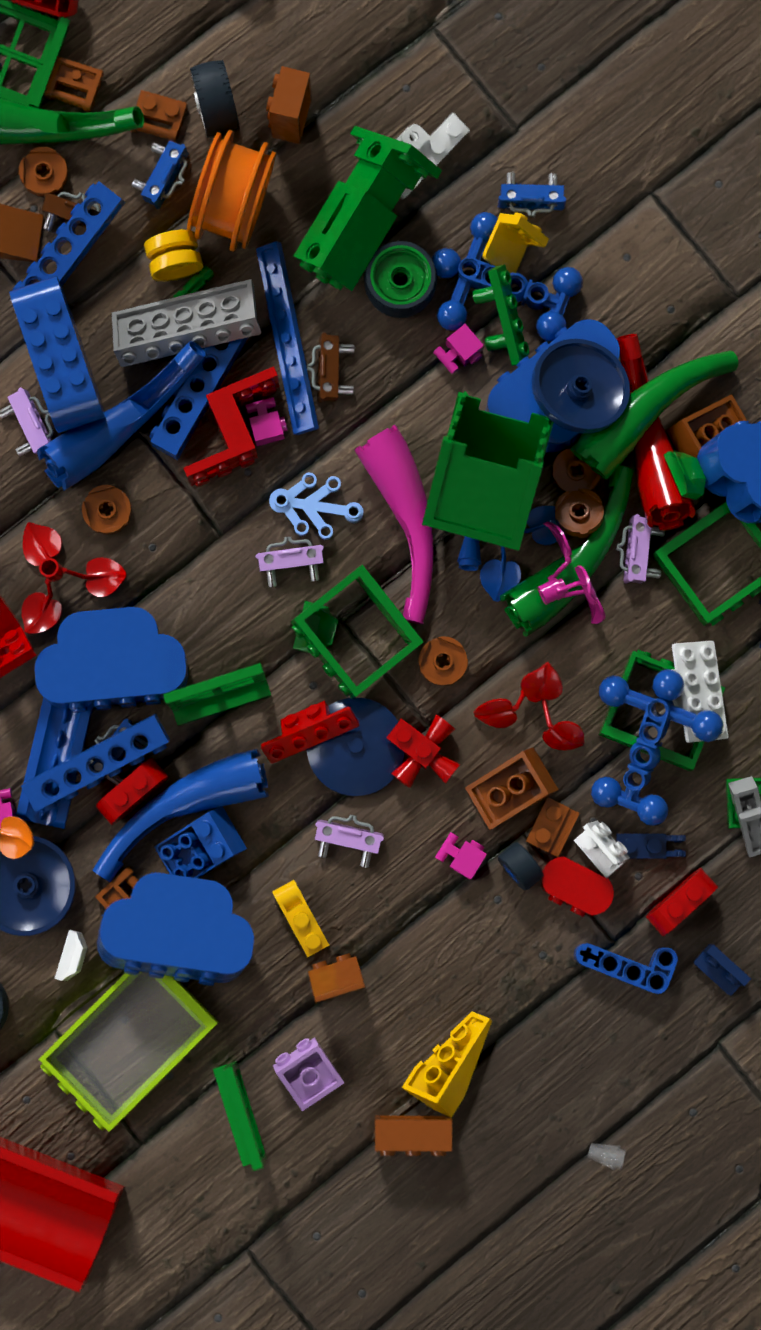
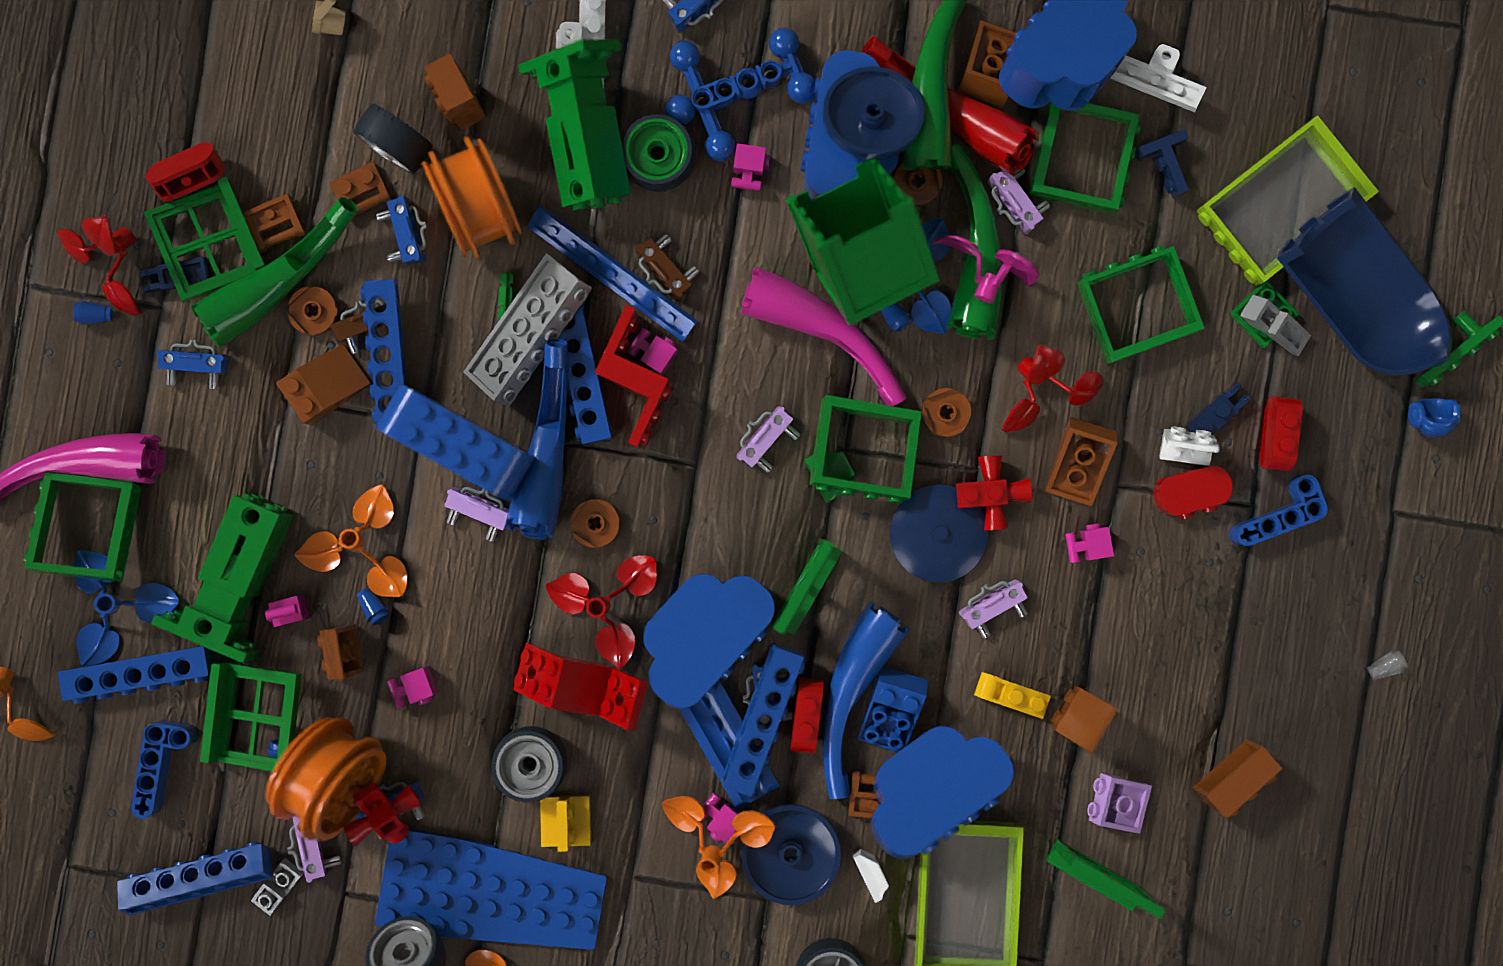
camera: 35 degrees left, 5 degrees up
(173, 255) = (470, 287): yellow wheel -> none
(308, 729) = (894, 551): red bracket -> none
(312, 505) = (744, 383): light blue plant -> none
(448, 1071) = (1218, 708): yellow wedge -> none
(506, 305) = (756, 100): green plate -> none
(510, 240) = (712, 48): yellow bracket -> none
(520, 866) = (1140, 513): black wheel -> none
(552, 827) = (1135, 463): dark orange plate -> none
(575, 500) = (959, 200): dark orange plate -> none
(667, 686) = (1138, 284): blue piece -> none
(686, 473) = (1008, 109): green slope -> none
(701, 679) = (1157, 270): white bracket -> none
(721, 969) = (1351, 457): dark blue bracket -> none

